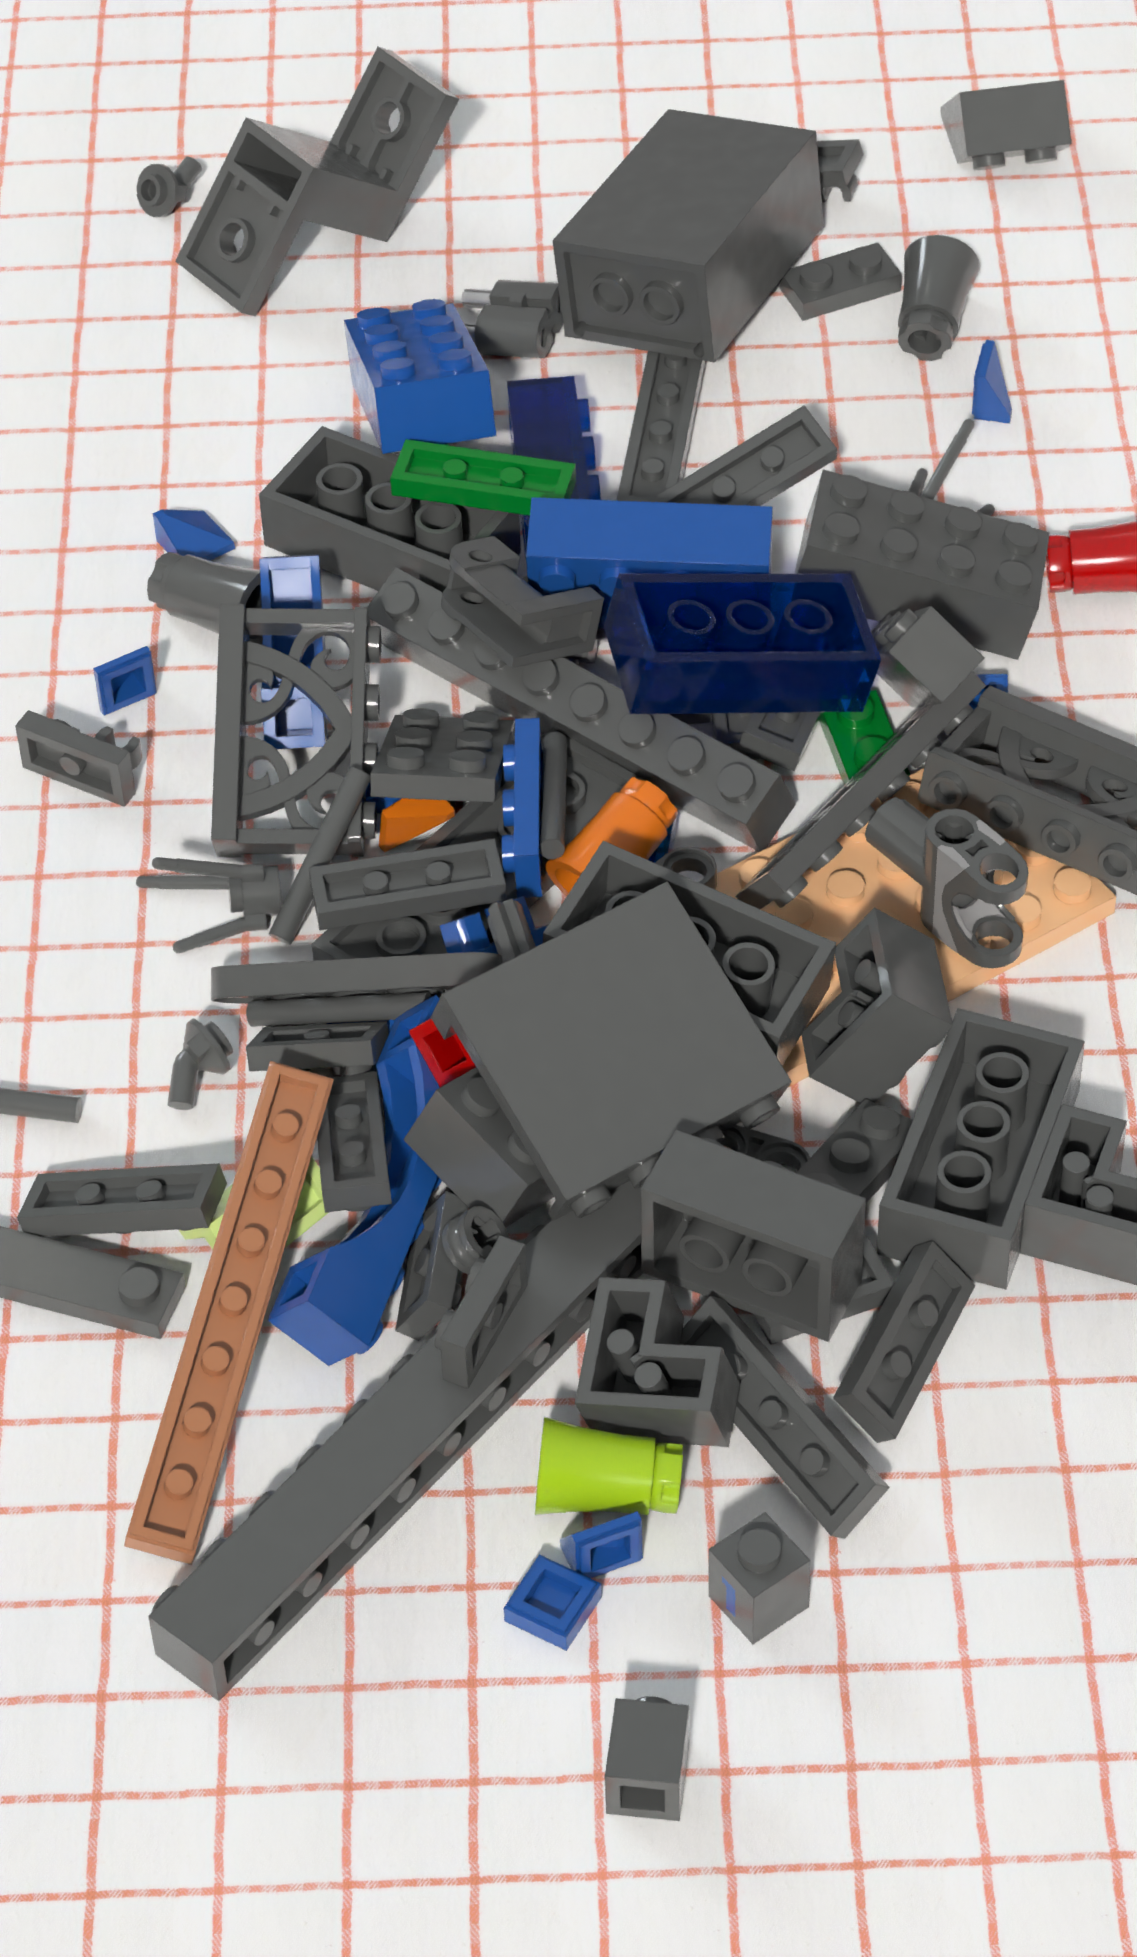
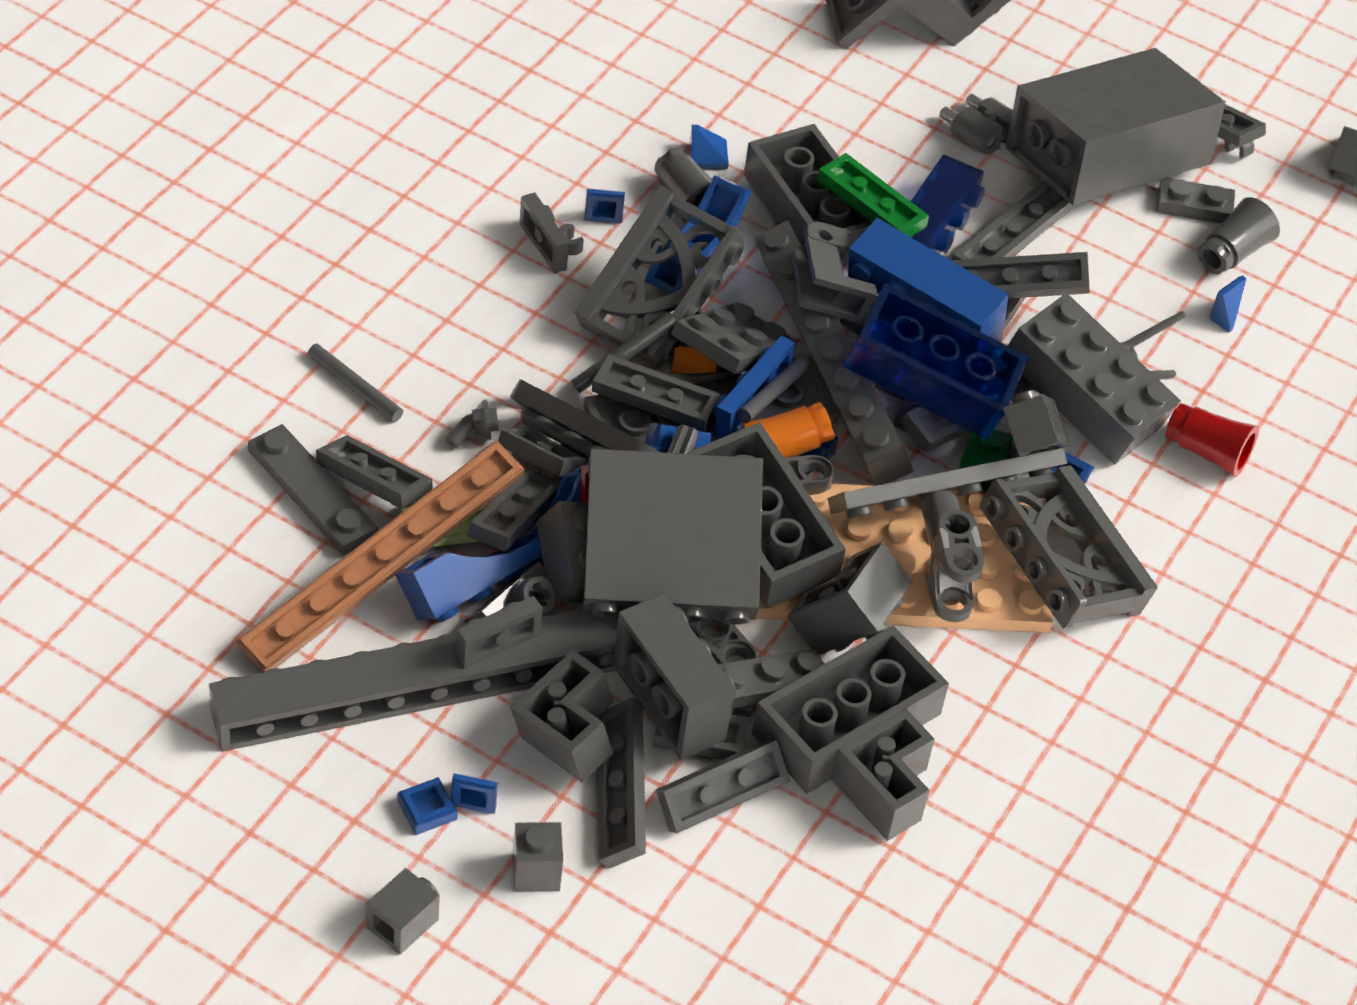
camera: 25 degrees right, 0 degrees up
(250, 889) = (577, 350): dark grey plant -> none
(419, 375) = (891, 124): blue brick -> none
(605, 1472) = (503, 754): lime plant -> none

